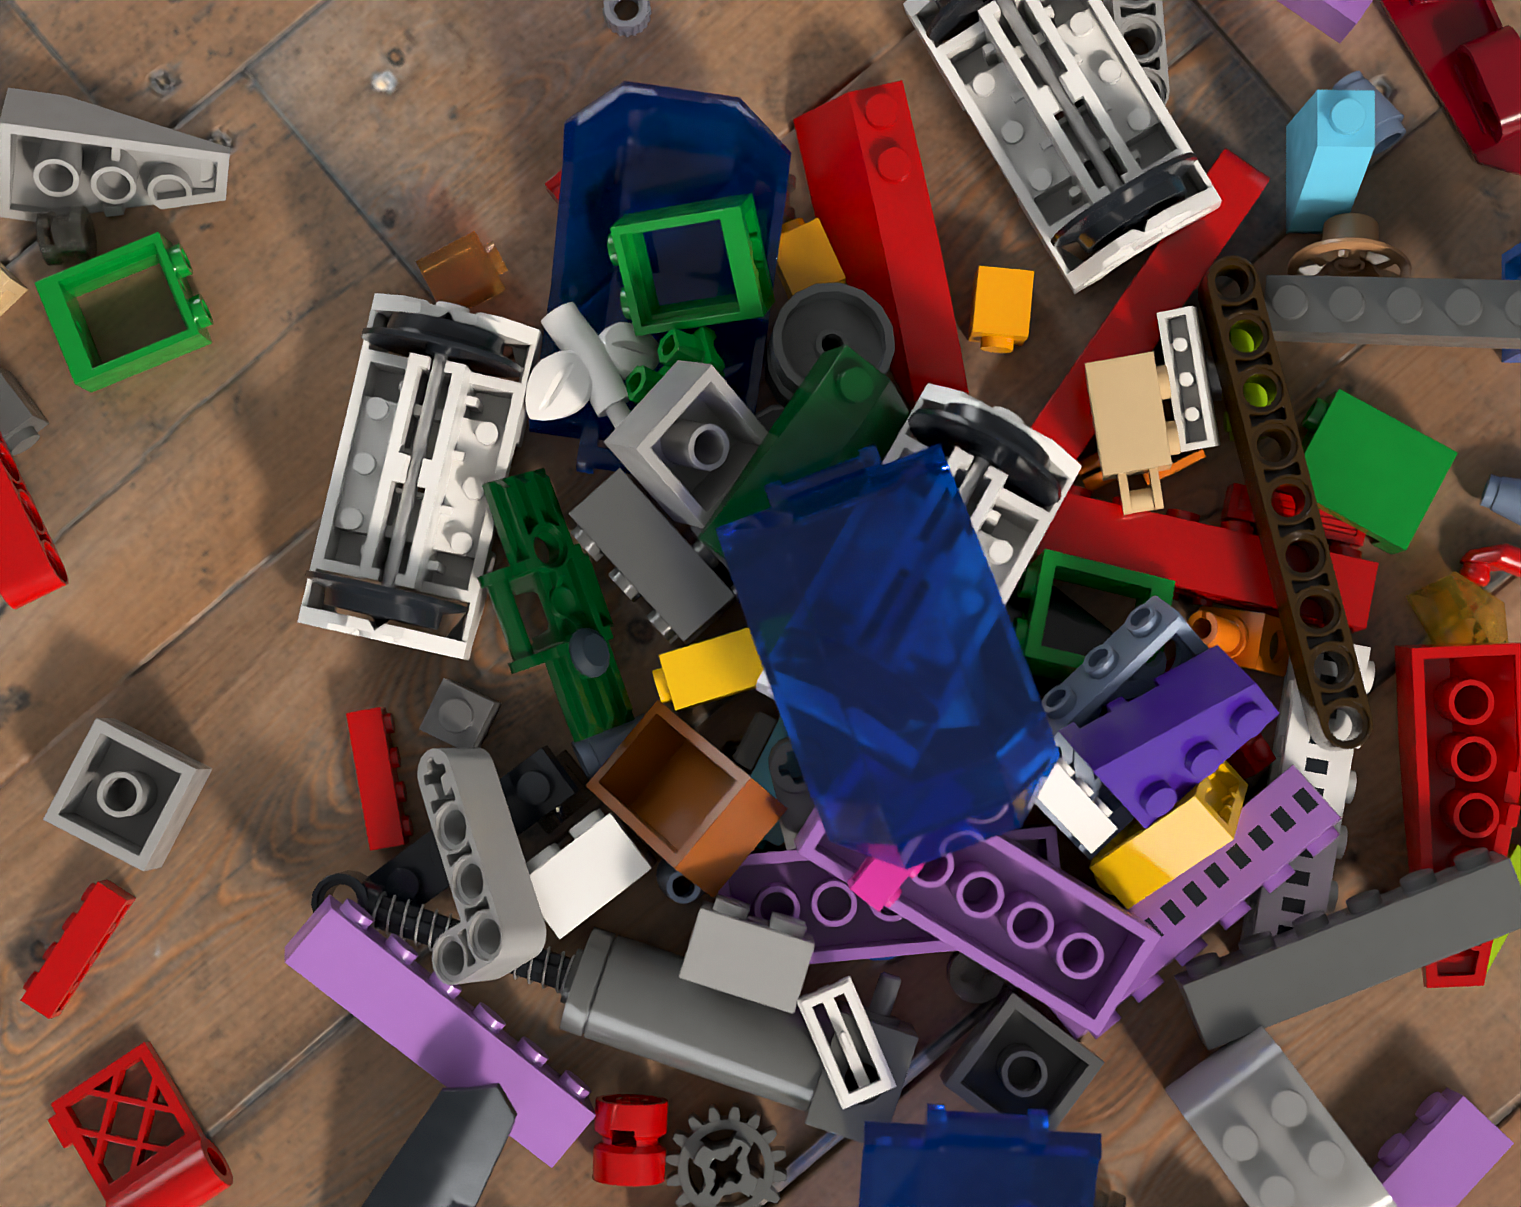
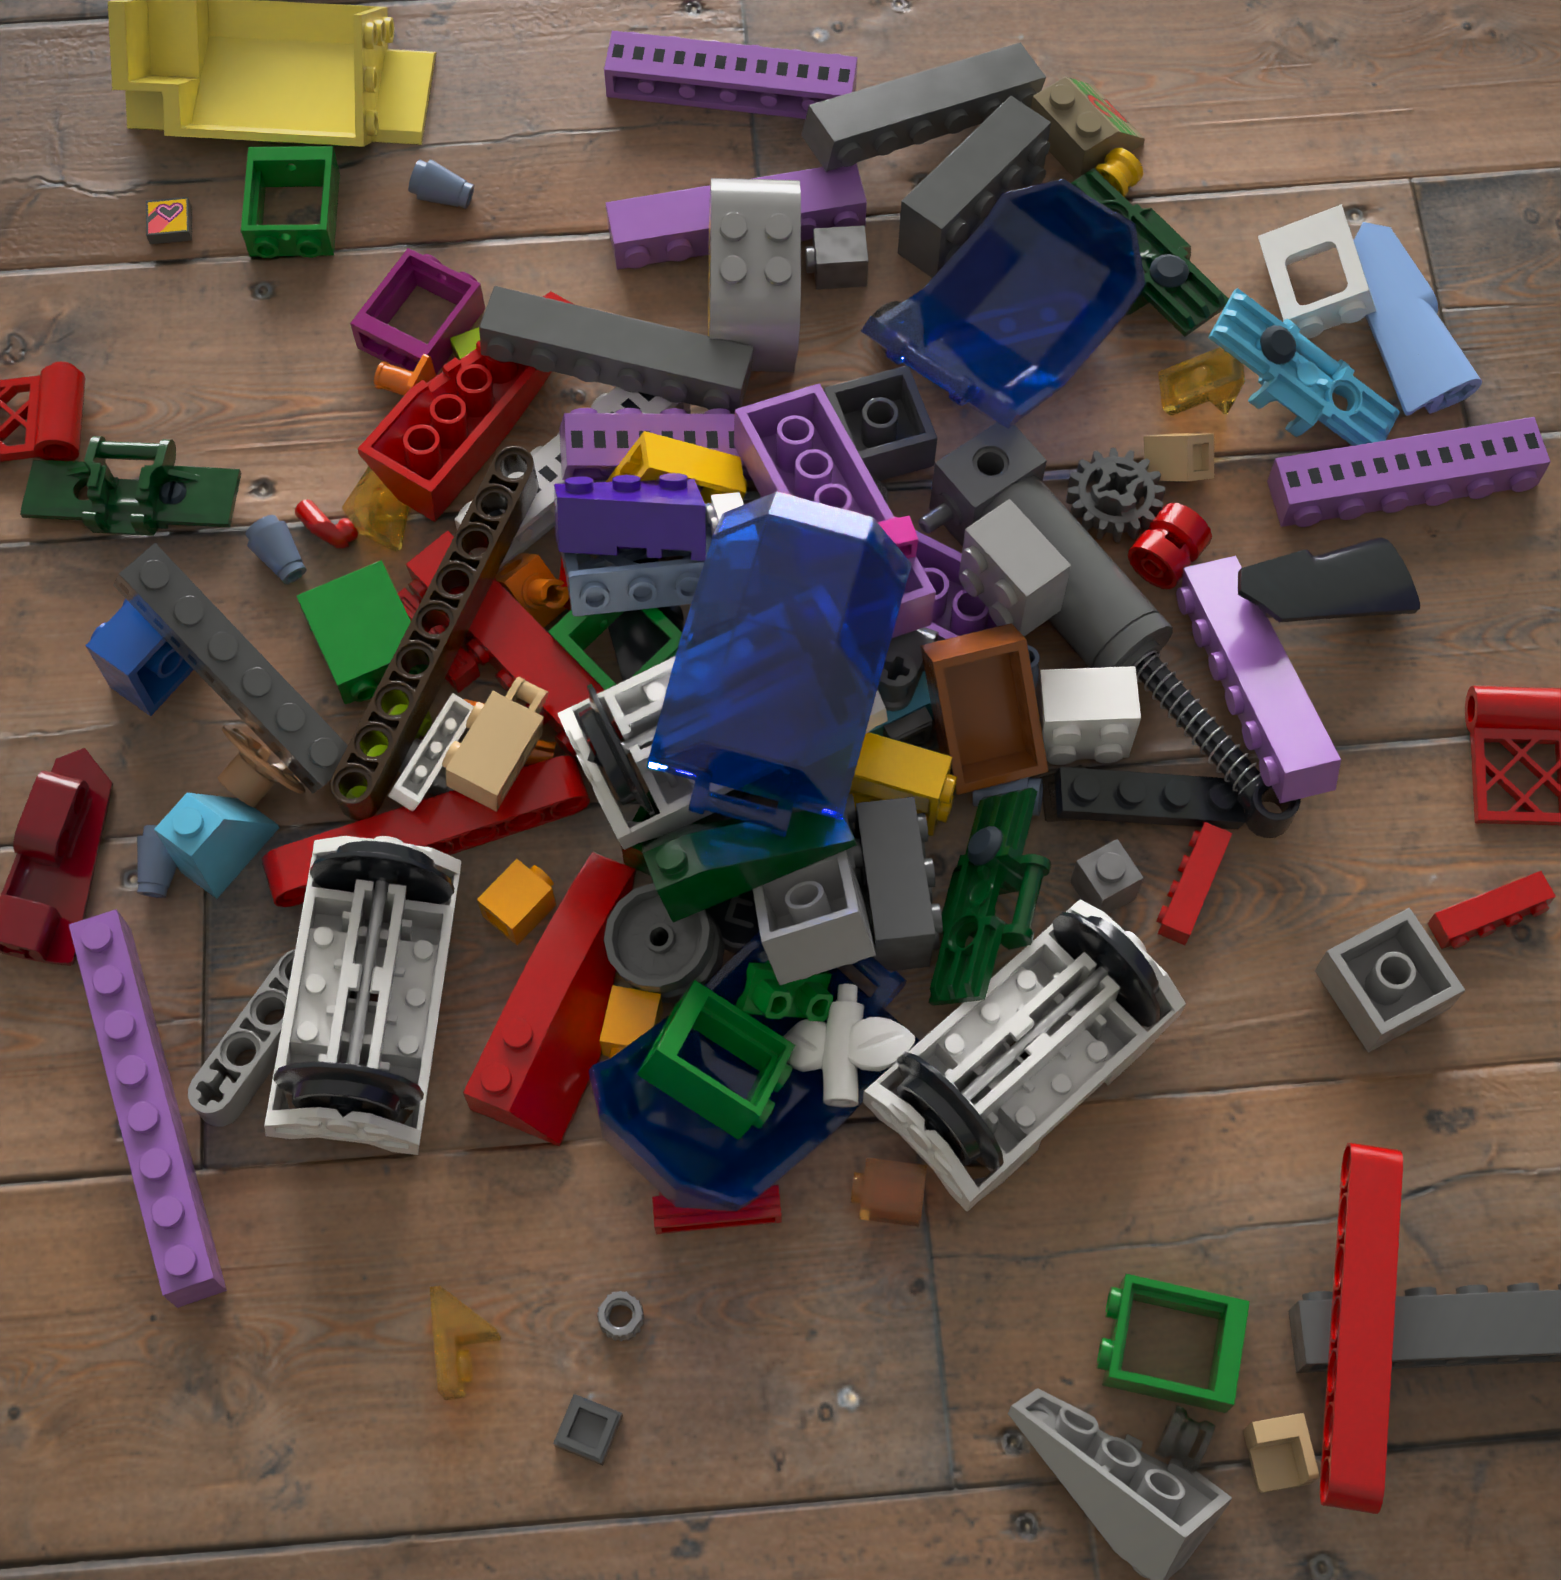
camera: 145 degrees left, 20 degrees down
(484, 869) = (1157, 743): light grey beam -> none
(866, 1089) = (992, 449): white tile -> none

